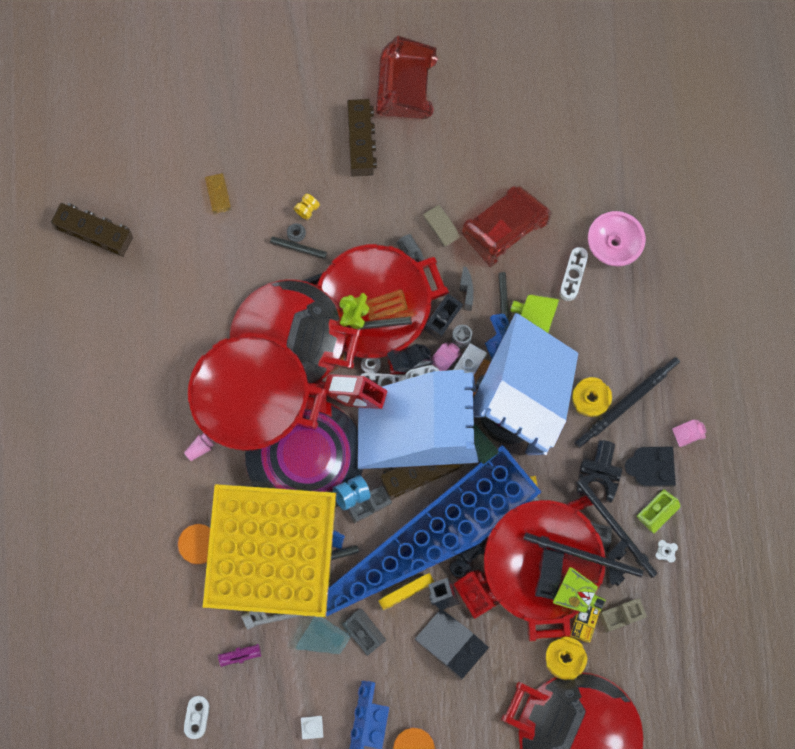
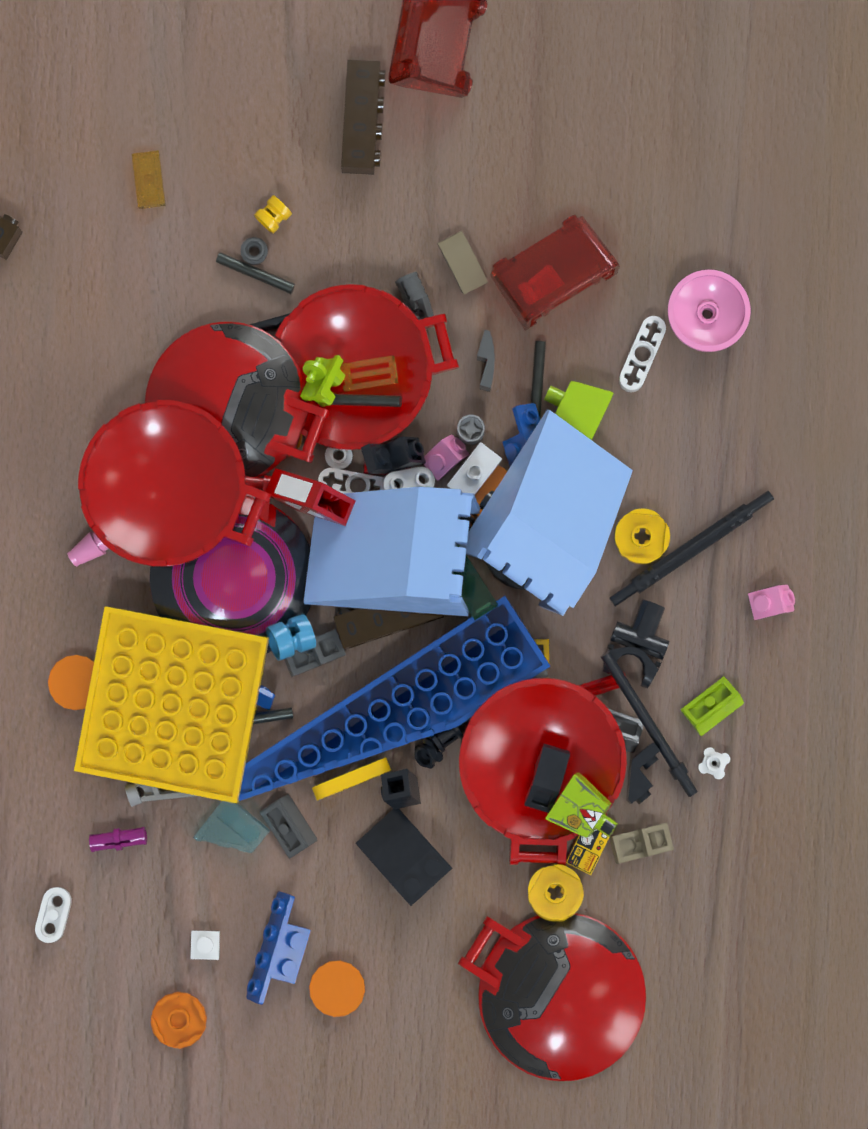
camera: 10 degrees right, 10 degrees up
(443, 316) = (447, 399): black brick -> none
(476, 593) = (445, 792): red bracket -> none
(544, 543) = (545, 734): black bar -> none
(652, 467) = (712, 643): black plate -> none

